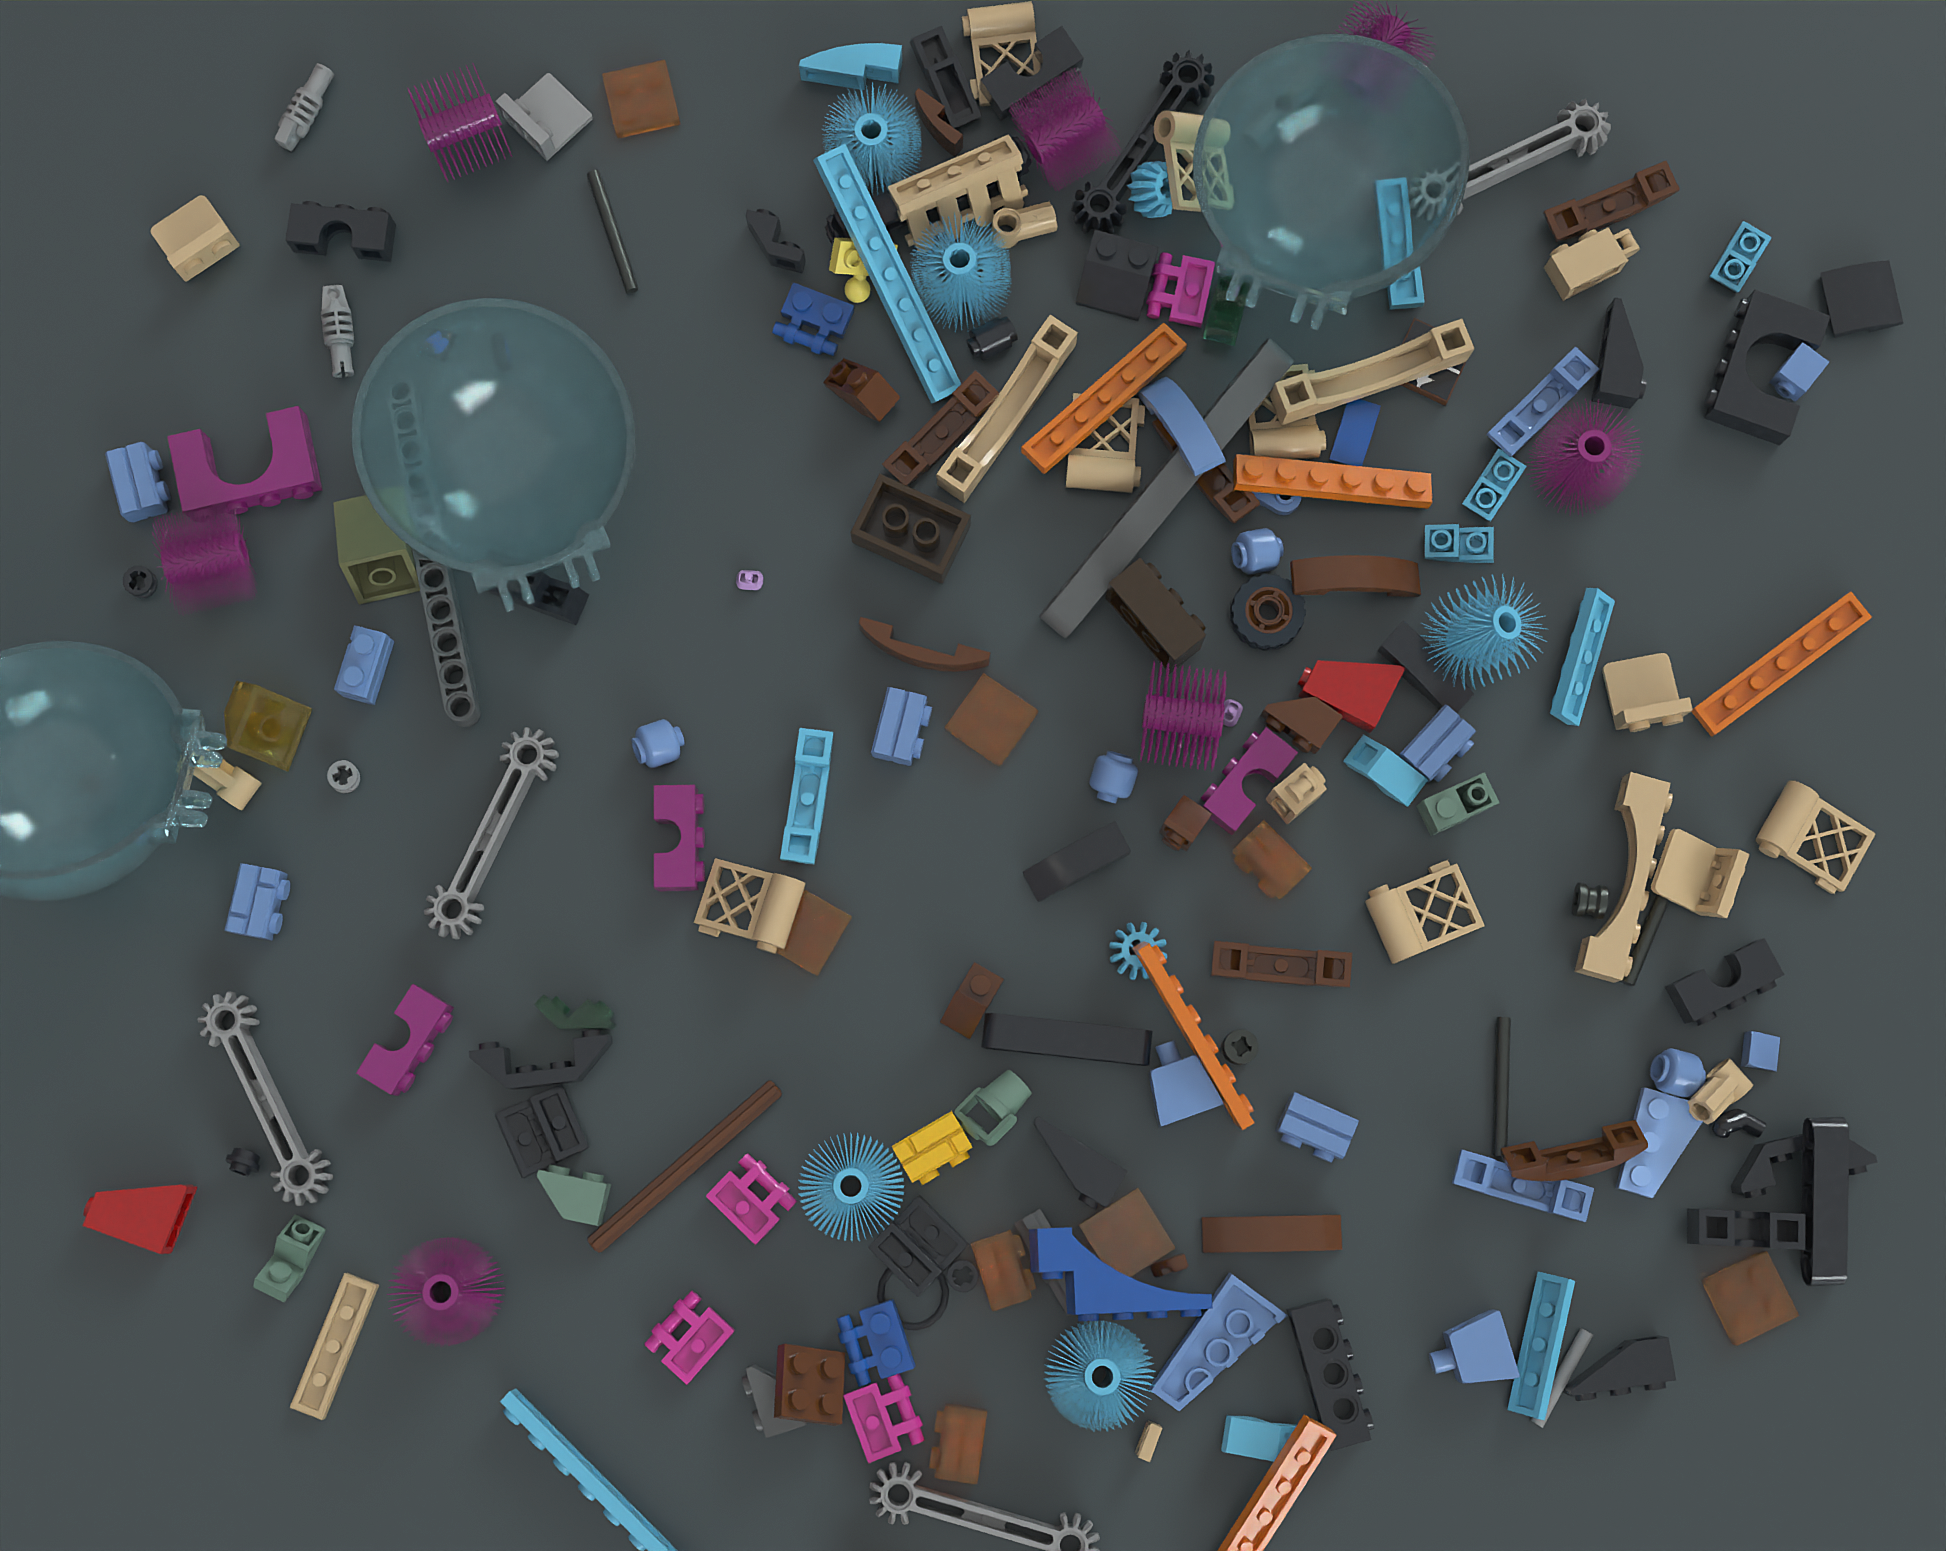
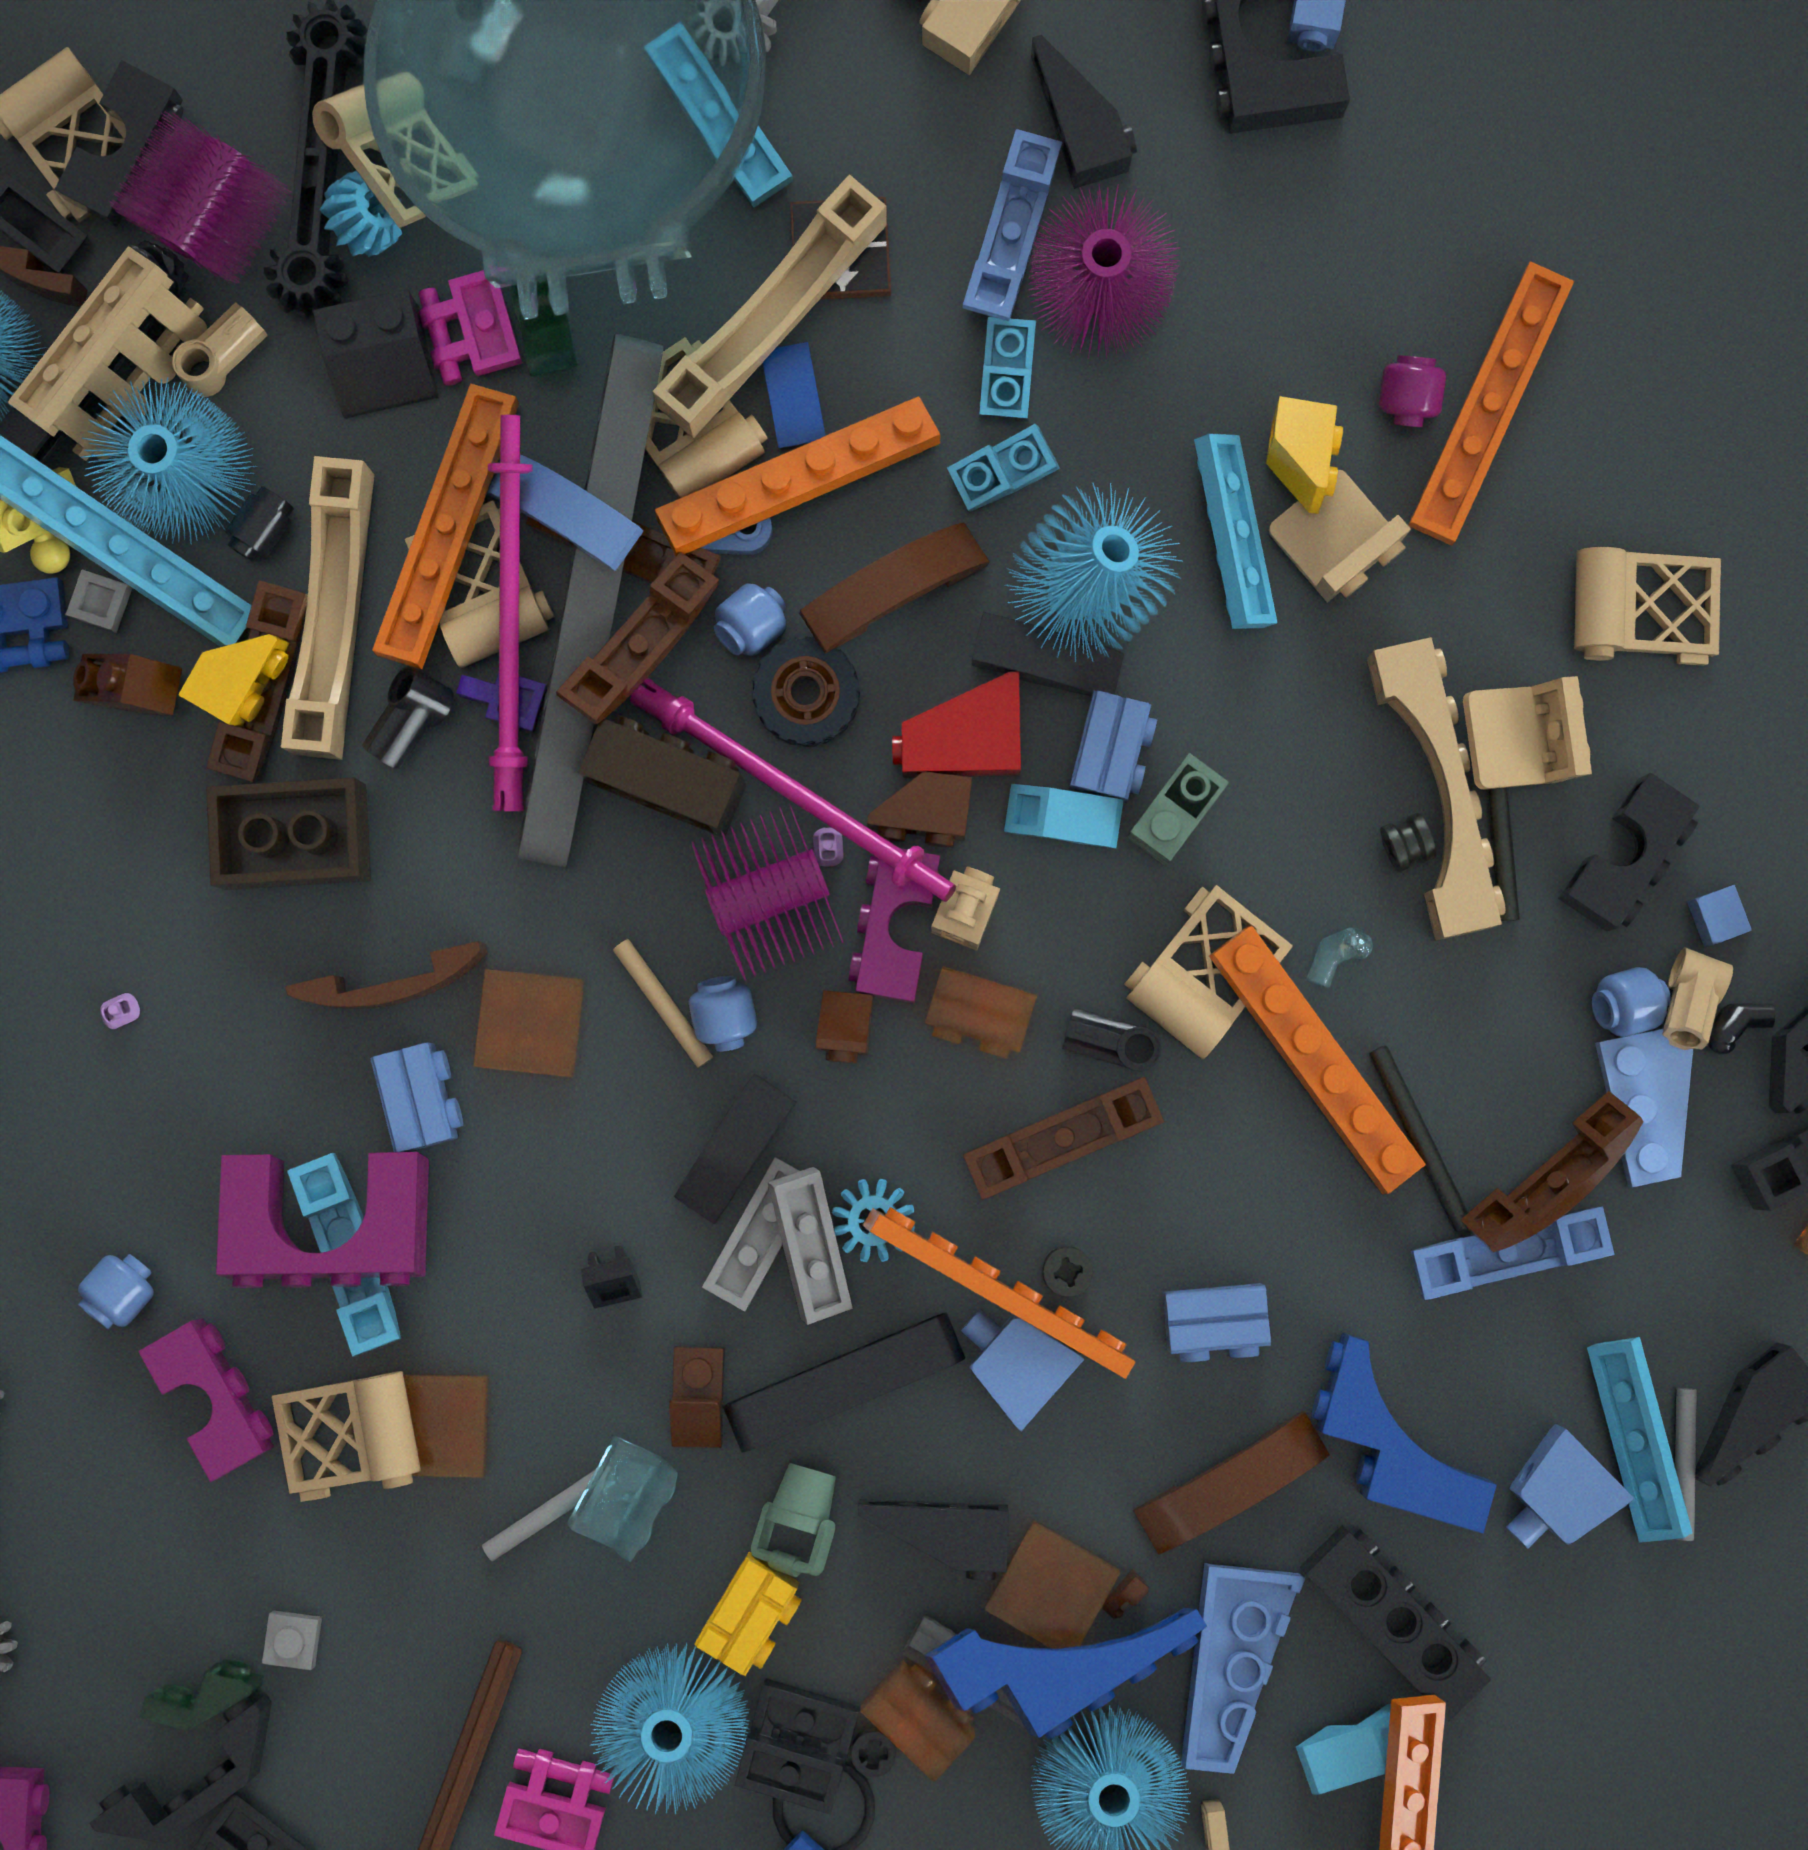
camera: 20 degrees left, 5 degrees up
(646, 1011) = (292, 1640): none -> light grey plate
(832, 804) = (385, 1246): none -> magenta arch
(844, 1020) = (536, 1520): none -> light grey bar
(871, 332) = (99, 601): none -> light grey plate
(895, 1035) = (624, 1498): none -> clear light blue bracket
(930, 417) = (232, 678): none -> yellow slope
(958, 900) = (610, 1281): none -> black tile
(1026, 493) = (412, 707): none -> black piece
(1064, 922) = (750, 1246): none -> light grey plate
(1066, 554) = (508, 757): none -> dark pink bar
(1079, 752) = (662, 1003): none -> tan bar
(1085, 522) = (530, 698): none -> dark purple plate
(1092, 944) = (810, 1245): none -> light grey plate
(1184, 584) = (679, 716): none -> dark pink bar
(1187, 527) = (641, 642): none -> reddish brown slope
(1339, 920) = (1106, 1039): none -> black piece
(1382, 1279) = (1397, 1468): none -> blue arch
(1463, 1003) = (1317, 1060): none -> orange plate
(1510, 942) = (1336, 949): none -> clear light blue arm
(1650, 627) = (1301, 449): none -> yellow slope
(1737, 629) = (1412, 390): none -> magenta head

